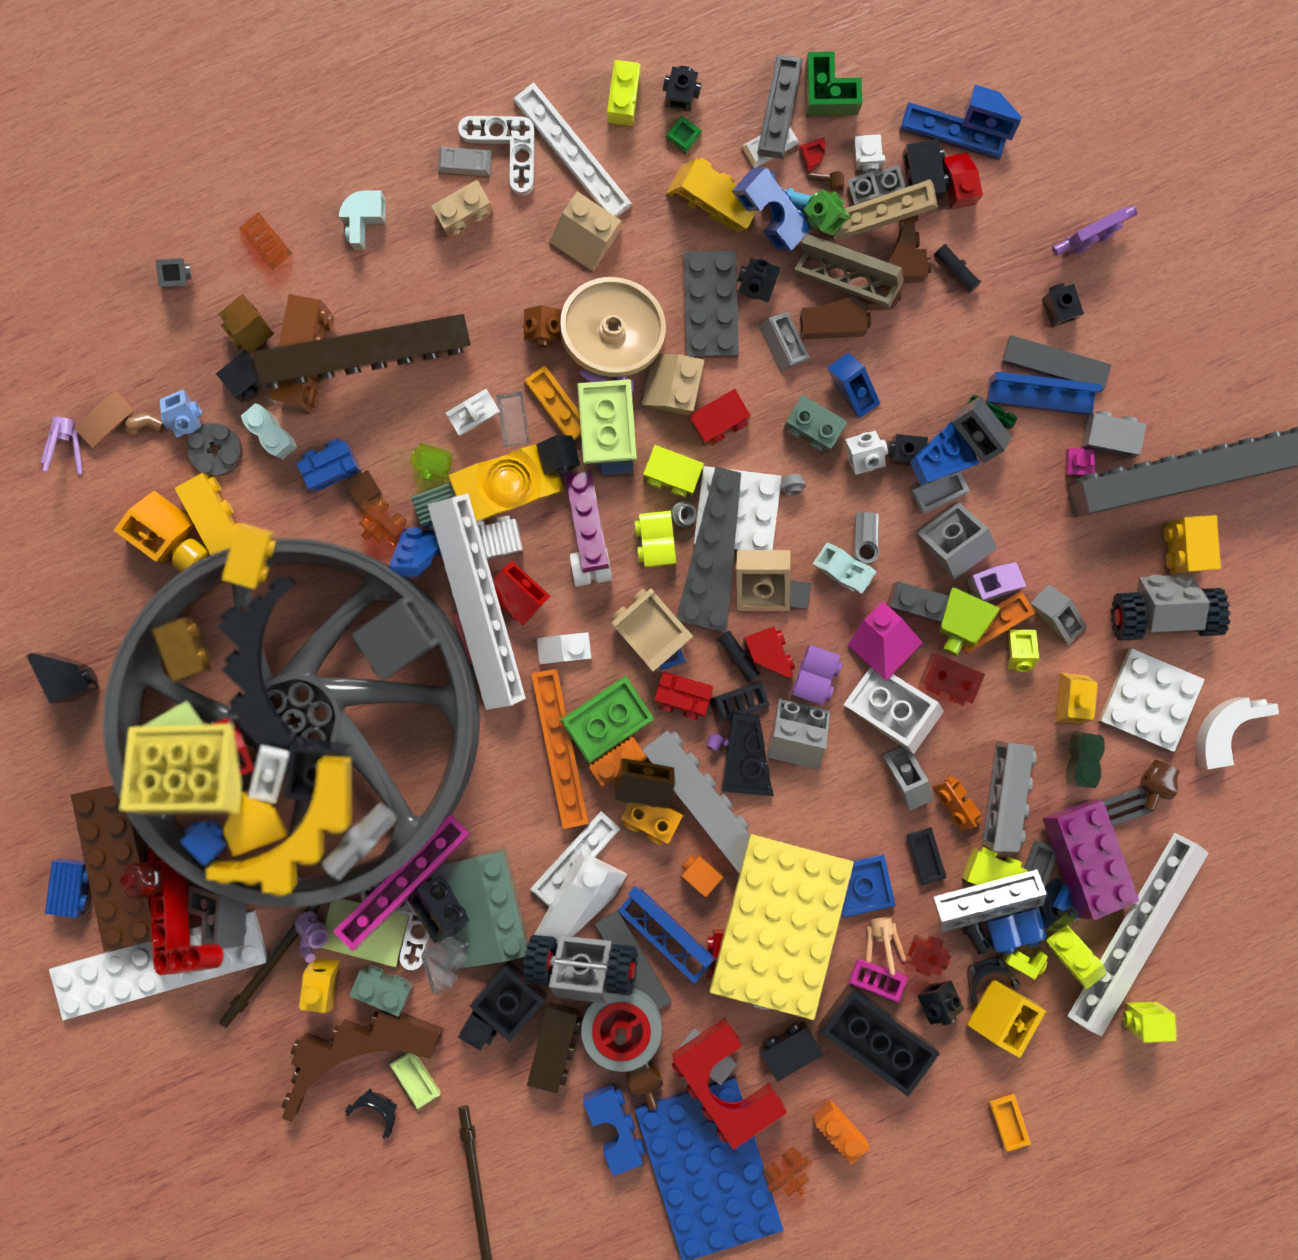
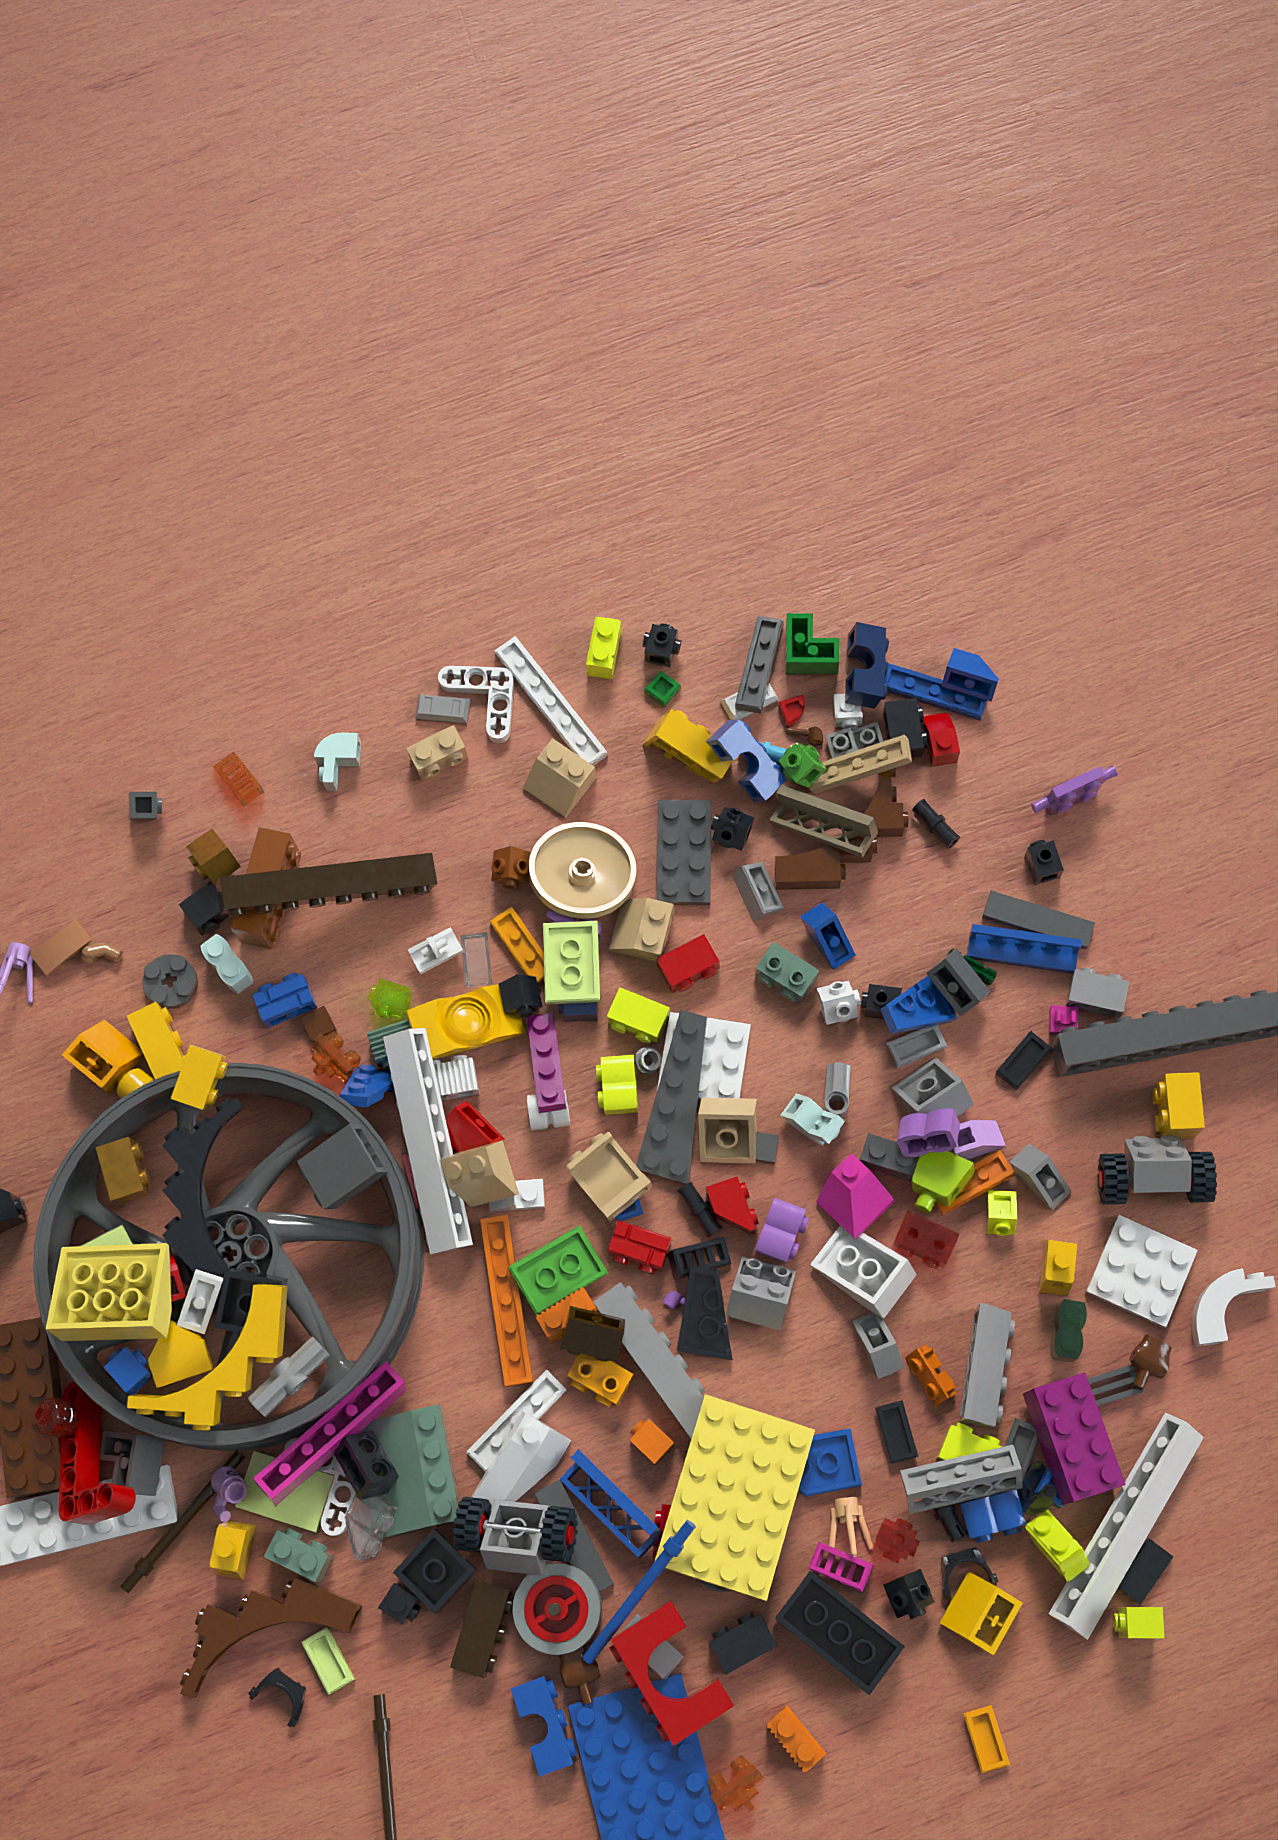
camera: 10 degrees right, 15 degrees down
(180, 413) = (139, 943): light blue brick -> none
(529, 633) = (480, 1174): none -> tan slope
(727, 982) = (672, 1548): none -> blue bar
(792, 484) = (761, 1033): light grey plate -> none
(889, 84) = (869, 646): none -> dark blue arch
(958, 581) = (928, 1132): none -> medium lavender brick
(1021, 962) = (998, 1552): neon yellow bracket -> none
(1042, 502) = (1023, 1060): none -> black tile
(1153, 972) = (1144, 1571): none -> black tile

